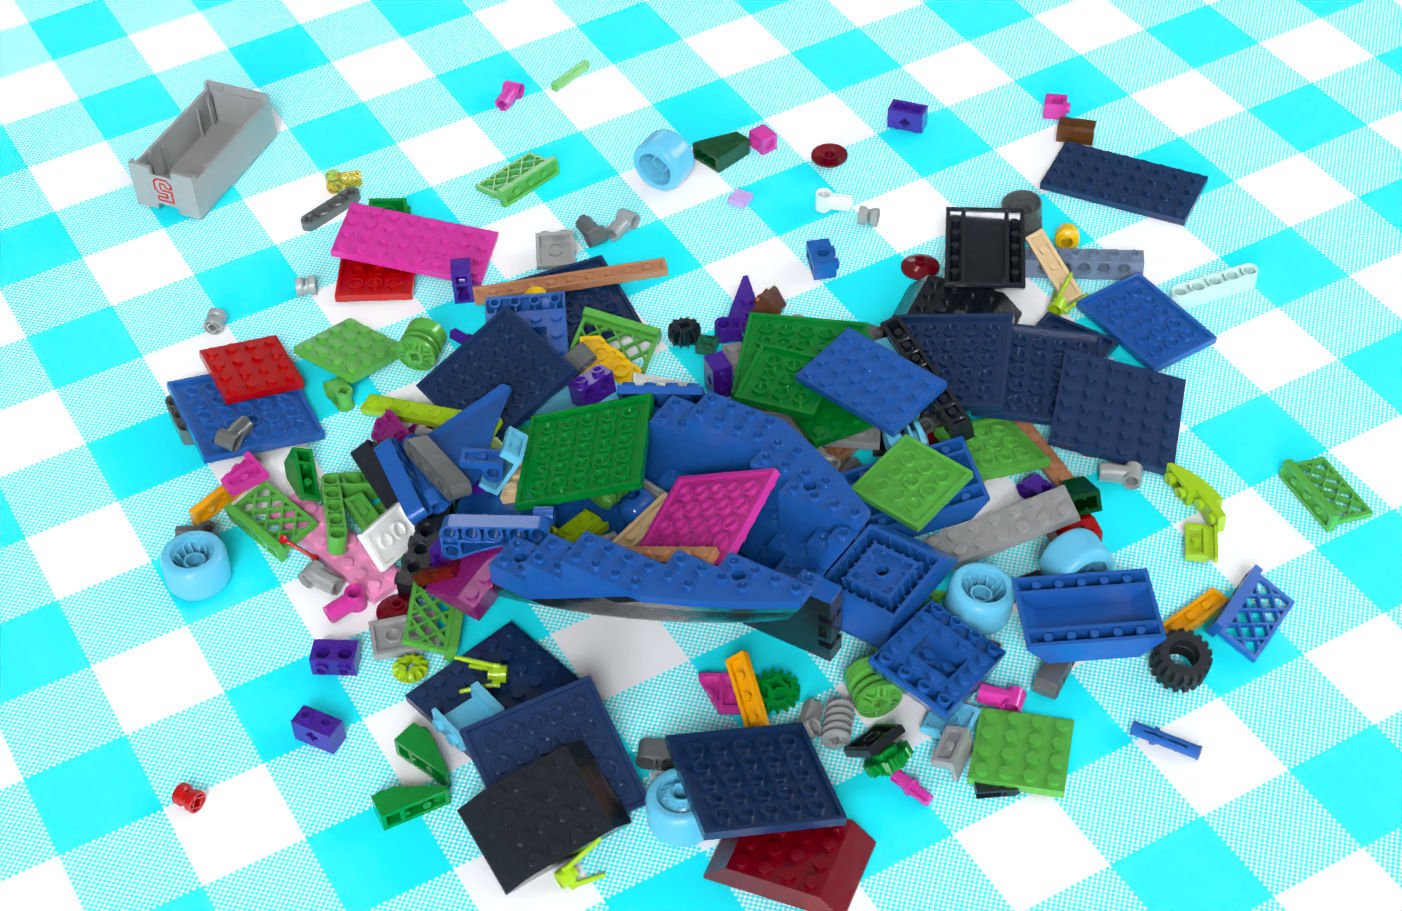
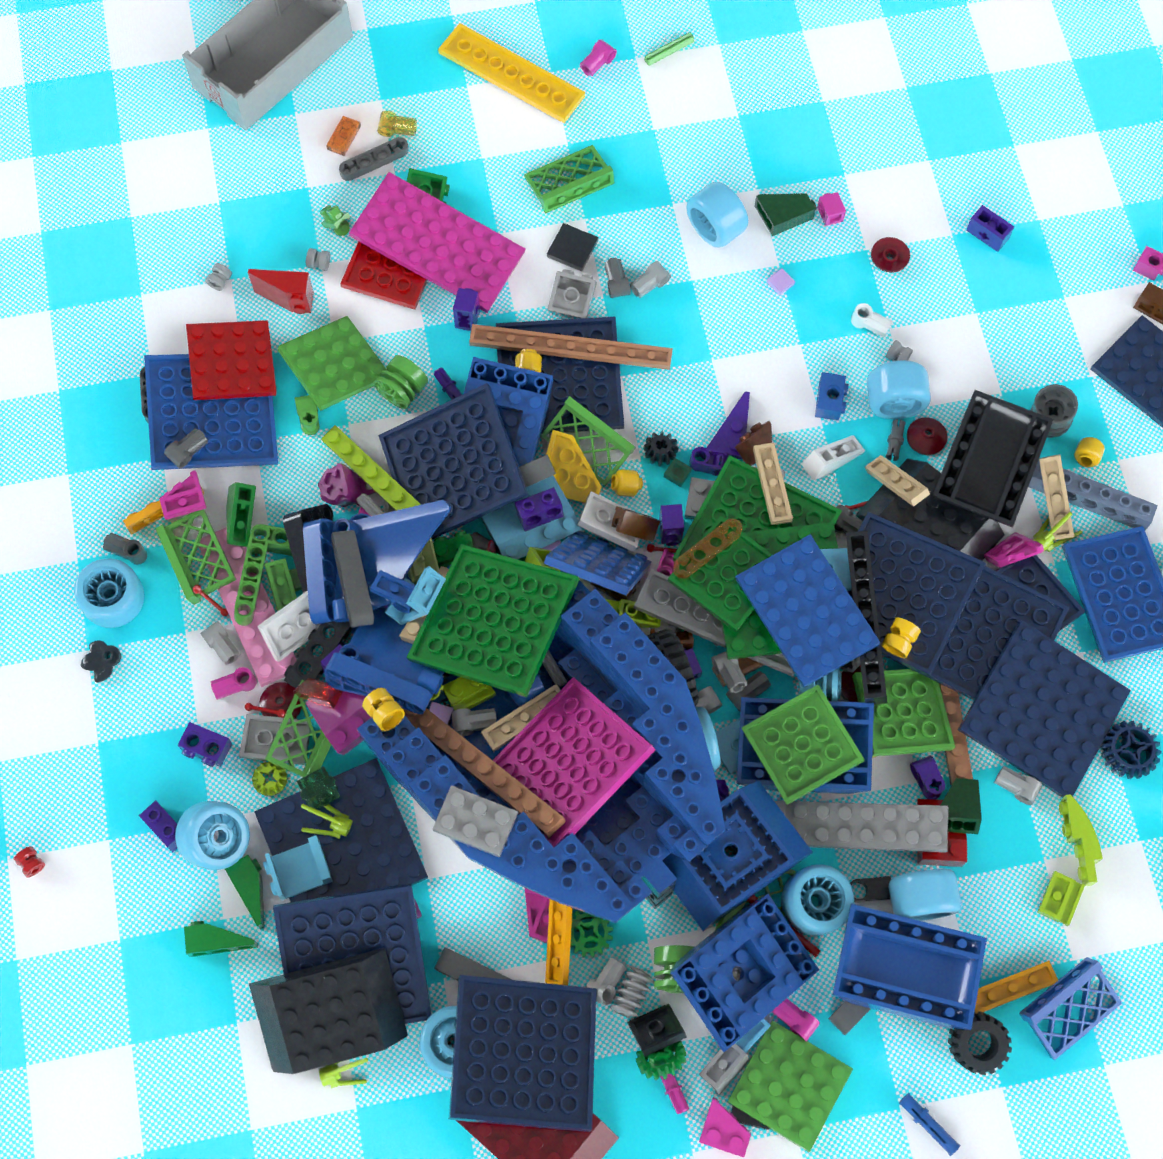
camera: 15 degrees right, 25 degrees up
(204, 624) = (98, 660): none -> black plate
(280, 309) = (285, 288): none -> red slope
(295, 201) = (343, 135): none -> clear orange plate
(311, 251) = (335, 219): none -> bright green hips
(372, 711) = (196, 835): none -> medium azure wheel
(403, 611) = (281, 713): none -> red hinge
(435, 122) = (511, 73): none -> yellow plate
(464, 644) = (318, 788): none -> clear green head
(510, 534) = (383, 709): none -> yellow wheel
(540, 220) = (572, 247): none -> black tile
(636, 563) = (475, 821): none -> light grey plate
(663, 363) = (626, 483): none -> yellow head
(684, 376) = (635, 524): none -> reddish brown hinge
(756, 362) = (706, 546): none -> clear orange beam
(798, 317) = (772, 483): none -> tan plate
(841, 298) = (831, 457): none -> white slope
(880, 232) = (898, 389): none -> medium azure wheel
(893, 273) = (895, 440): none -> dark grey pin
(908, 290) = (897, 480): none -> tan plate
(964, 382) = (901, 637): none -> yellow wheel
(975, 802) = (724, 1131): none -> dark pink wing
(1038, 312) = (1013, 549): none -> dark pink wing
(1207, 423) = (1129, 733): none -> dark blue gear

